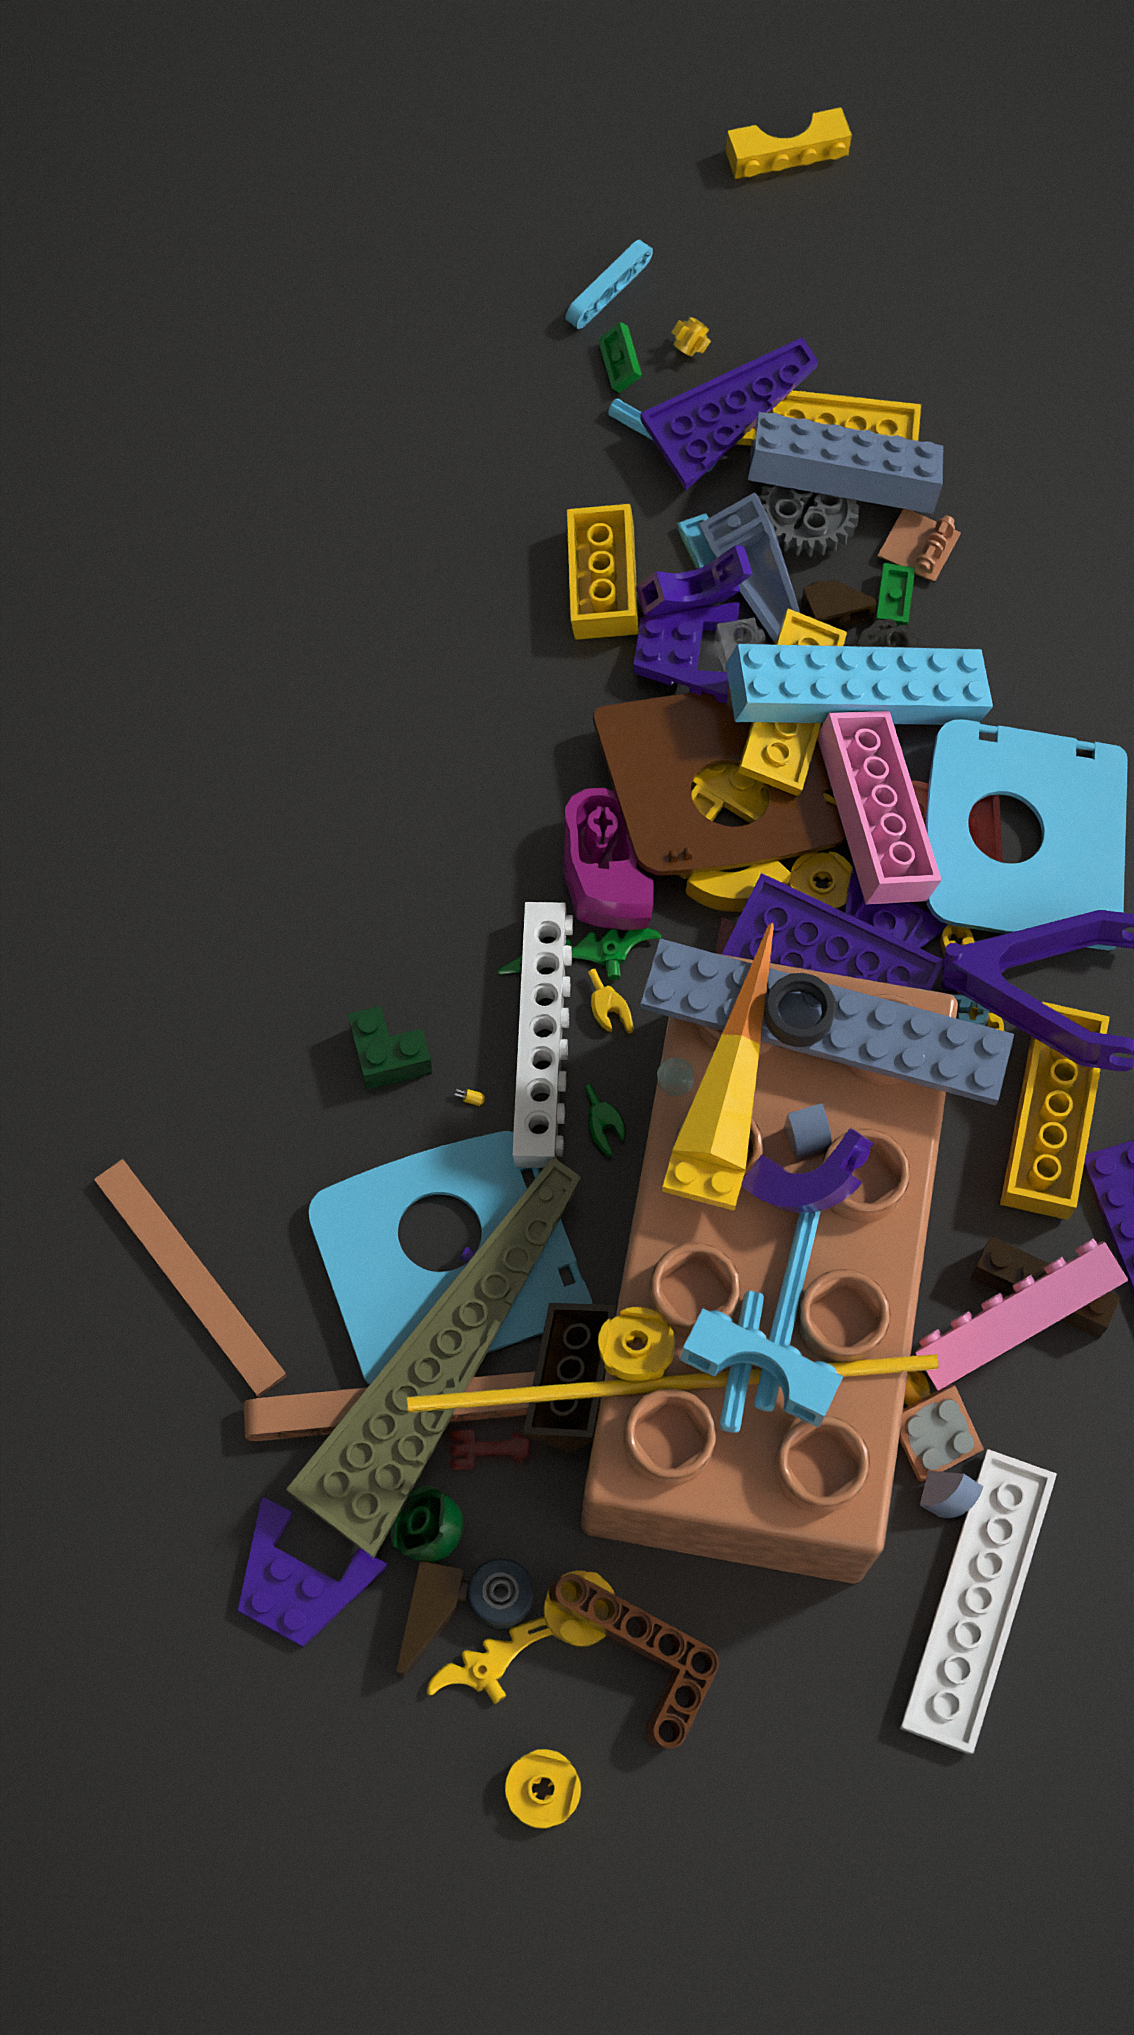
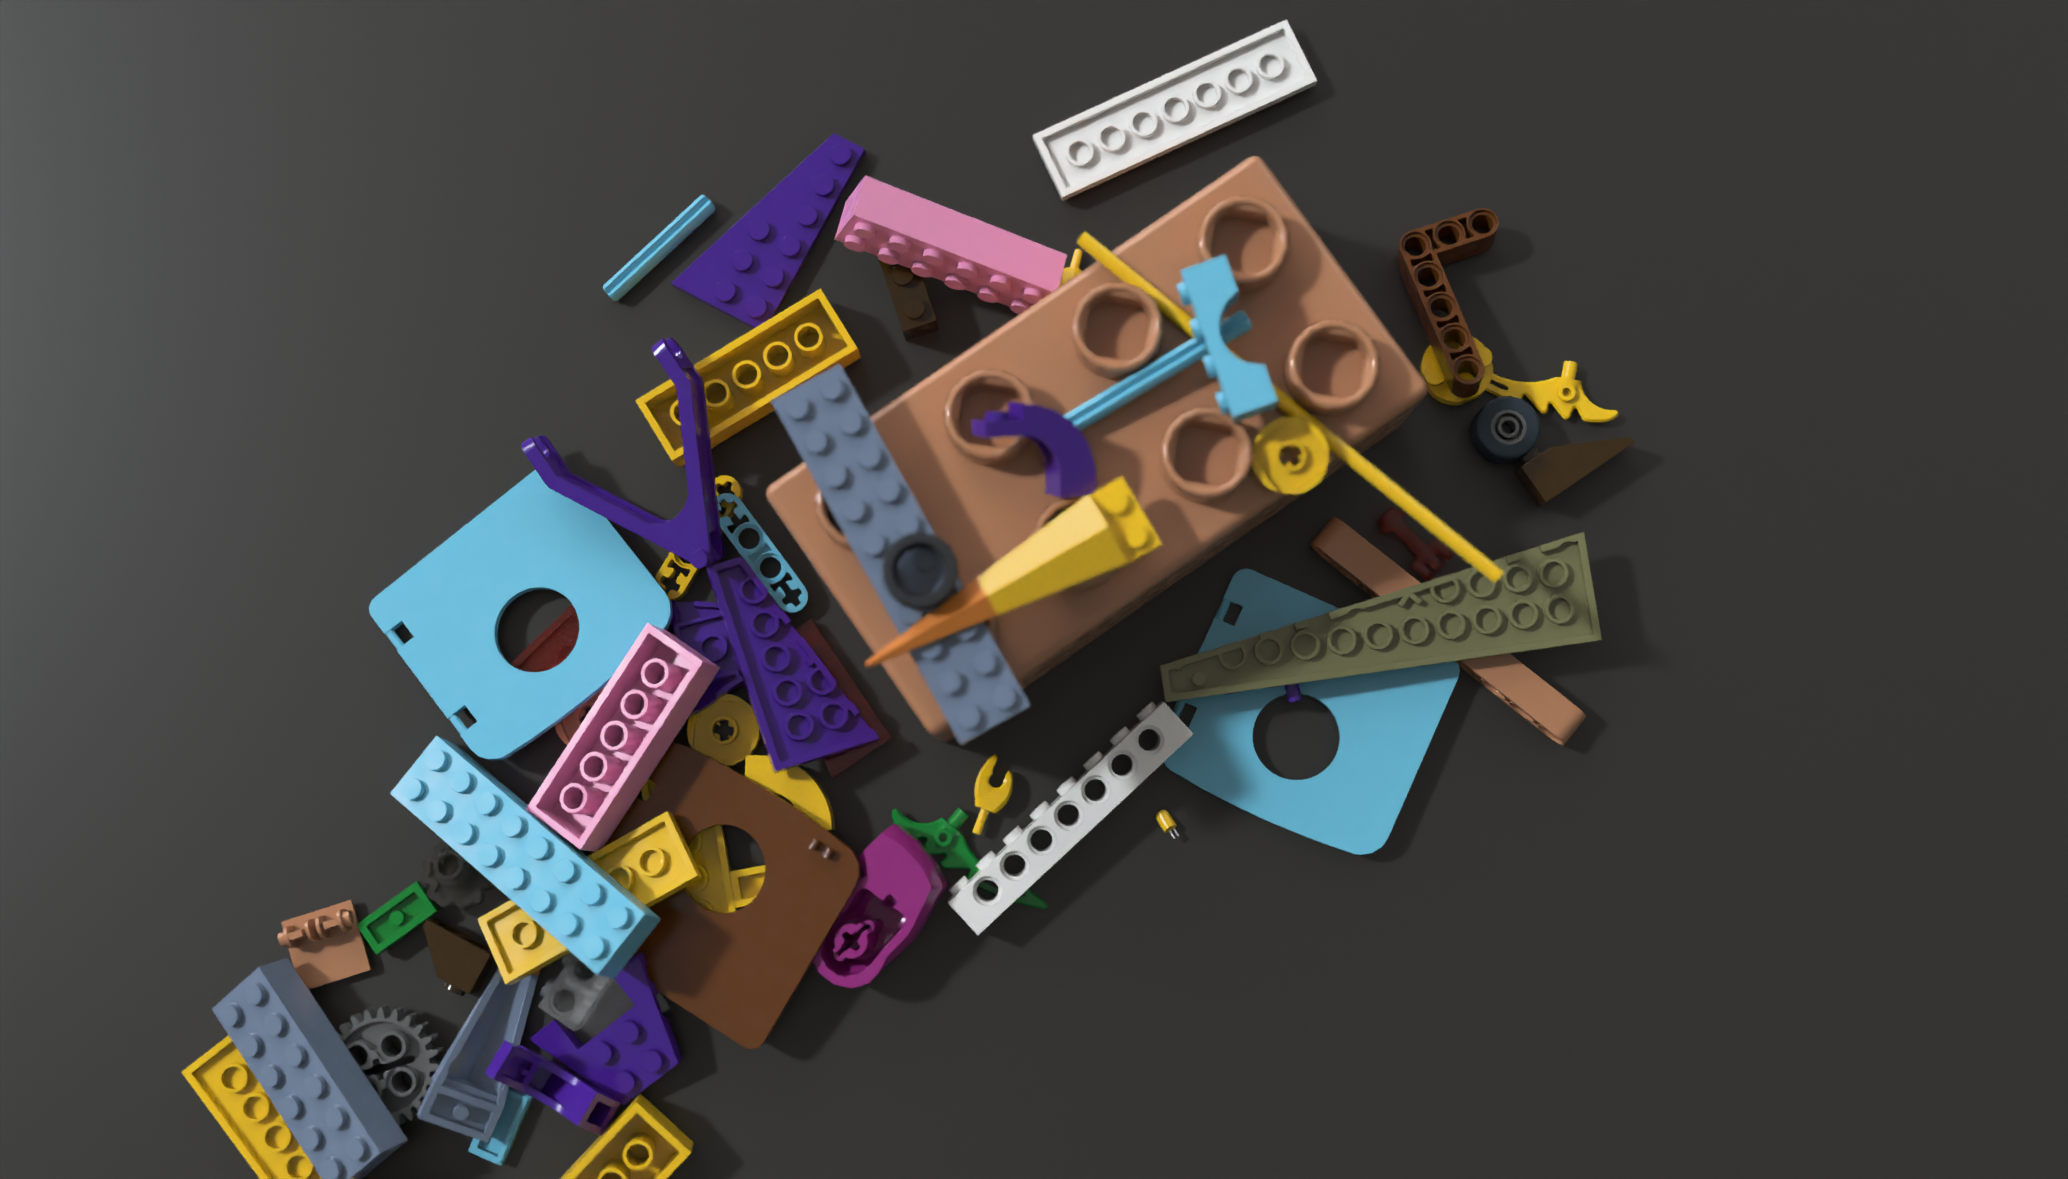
camera: 130 degrees left, 15 degrees up
(190, 1278) = (1513, 886): nougat tile -> none
(291, 1594) = (1651, 577): dark purple wing -> none
(386, 1057) = (1210, 918): dark green brick -> none
(427, 1525) = (1516, 521): dark green cylinder -> none
(530, 1771) = (1602, 256): yellow plate -> none
(568, 1356) = (1311, 528): dark brown slope -> none
(603, 1116) = (1085, 708): green hand -> none
(675, 1076) = (1050, 634): clear light blue tile -> none
(740, 1373) = (1248, 352): medium azure axle -> none
(808, 1131) = (998, 489): sand blue brick -> none
(938, 1432) = (1073, 222): light grey piece -> none
(949, 1494) = (1122, 193): sand blue brick -> none

